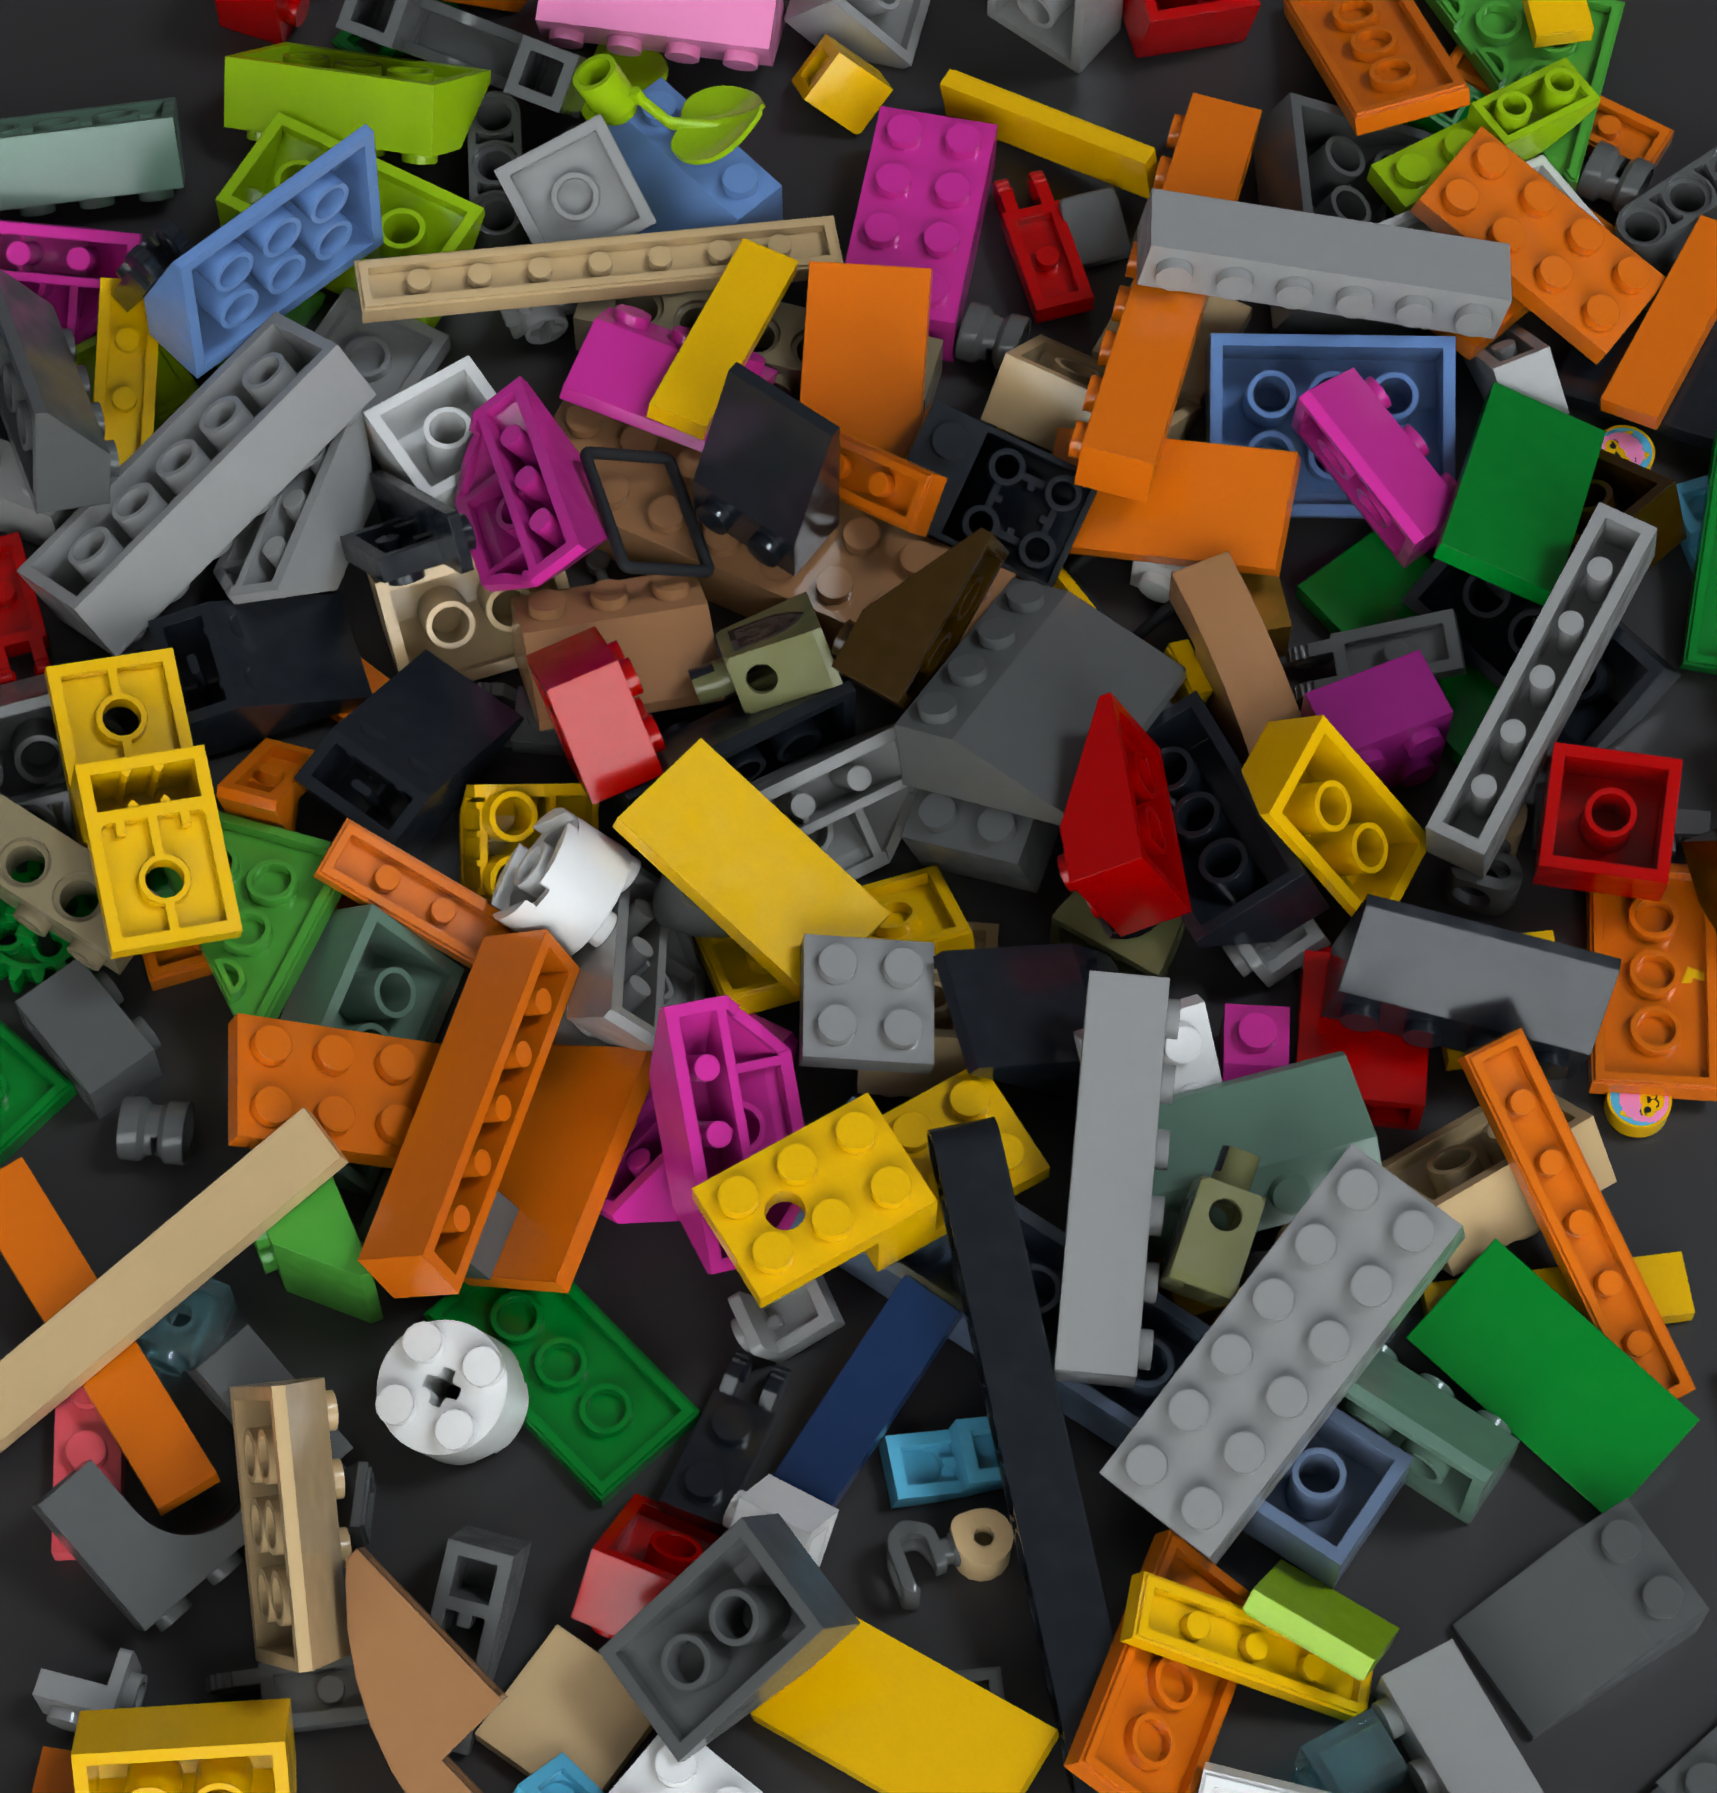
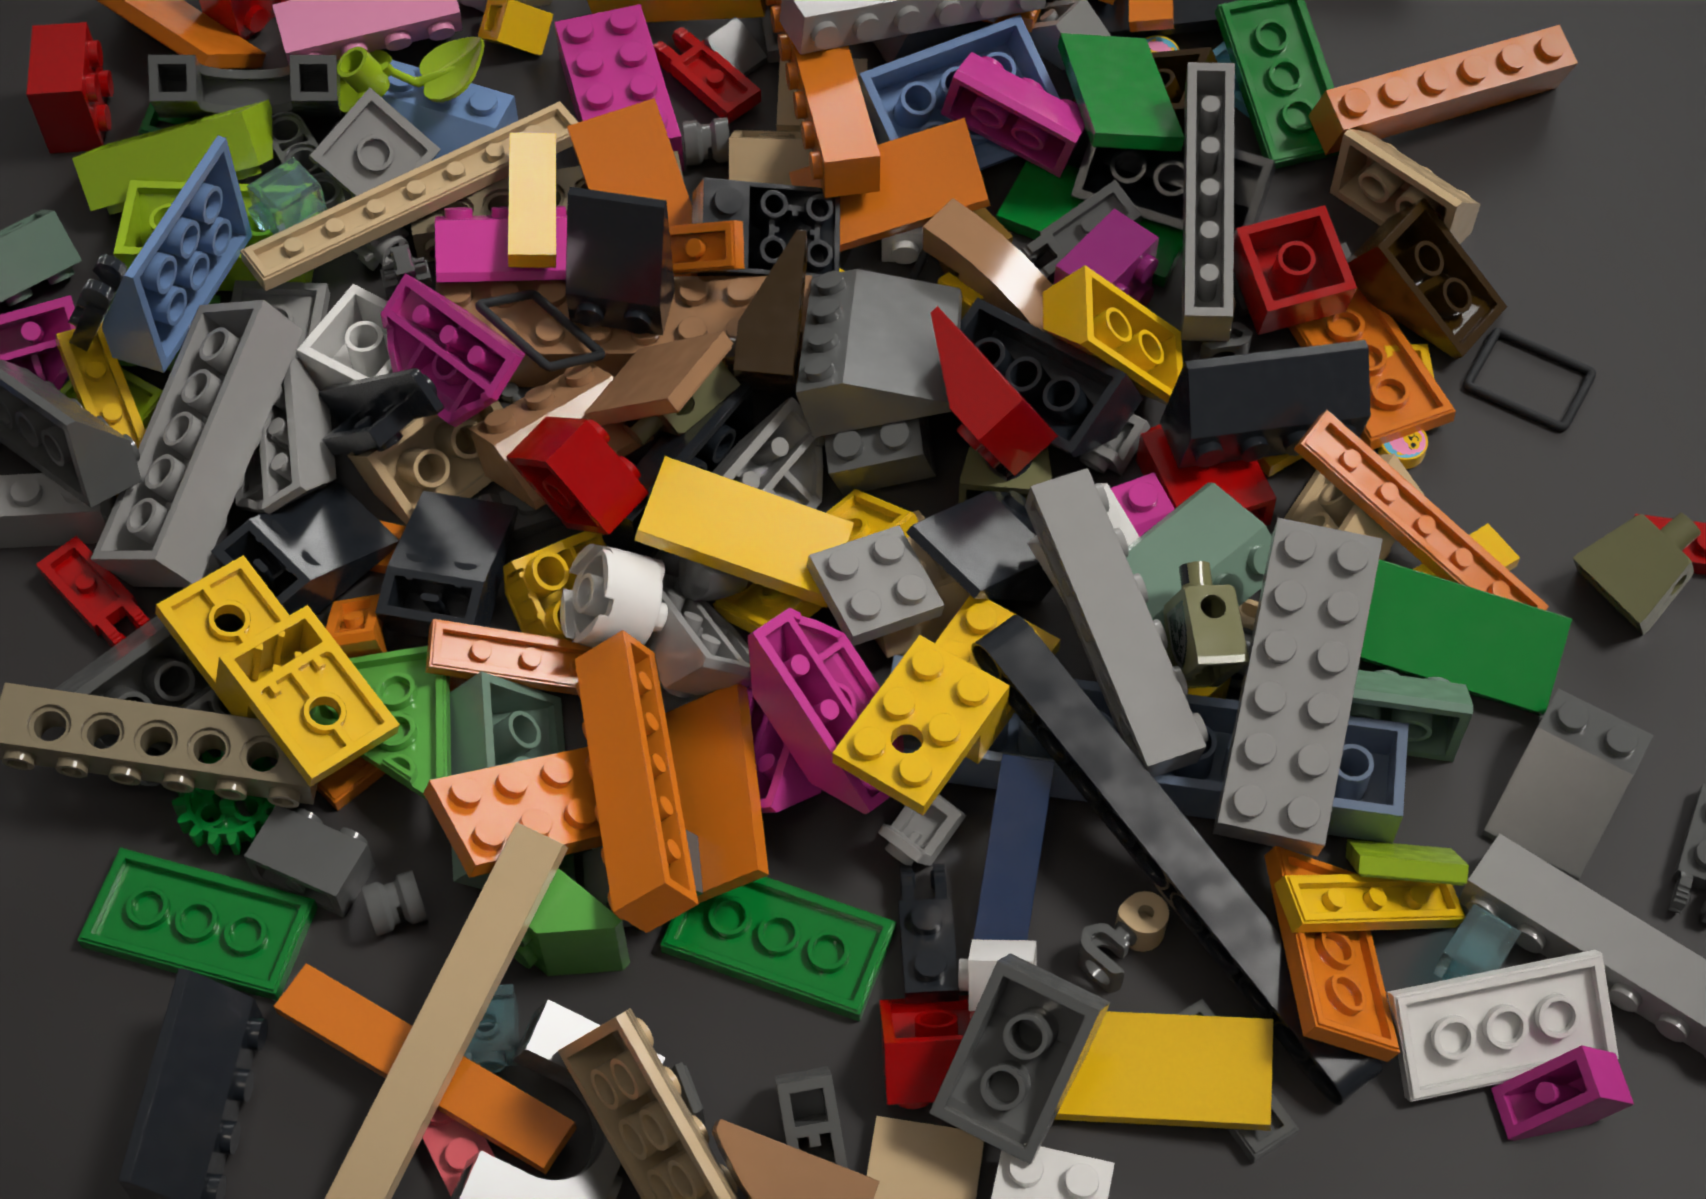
camera: 25 degrees left, 5 degrees down
(415, 1385) = (694, 963): white brick -> none
(436, 215) = (285, 197): none -> clear light blue brick
(535, 367) = (403, 264): none -> dark grey hinge
(743, 639) = (659, 379): none -> medium nougat tile
(940, 1463) = (1086, 879): medium azure slope -> none

